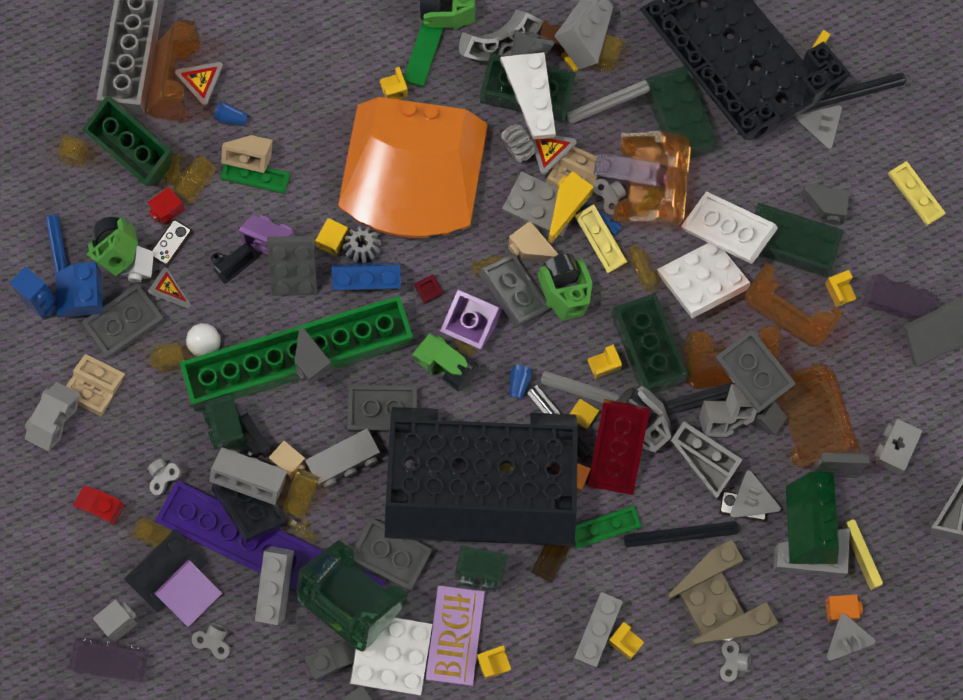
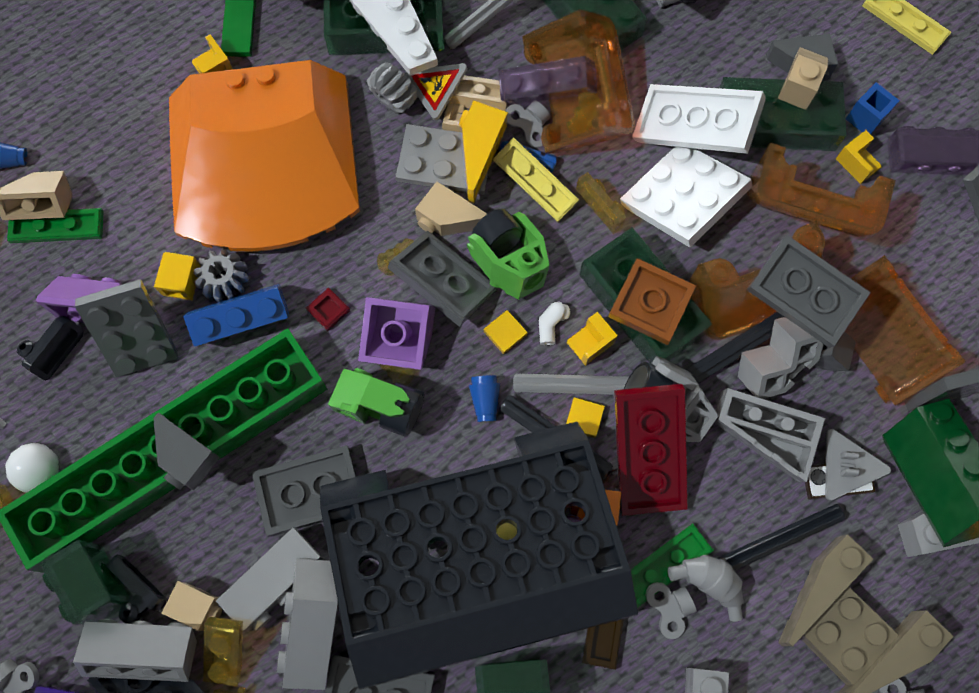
camera: 15 degrees left, 0 degrees up
(361, 493) = (310, 626): none -> light grey wedge
(546, 340) = (505, 332): none -> yellow tile
(579, 340) = (547, 321): none -> white arm
(601, 554) = (672, 608): none -> light grey piece
(635, 543) = (715, 579): none -> light grey piece
(650, 347) = (652, 301): none -> dark orange plate
(812, 219) = (804, 78): none -> tan slope
(860, 256) = (872, 109): none -> blue brick

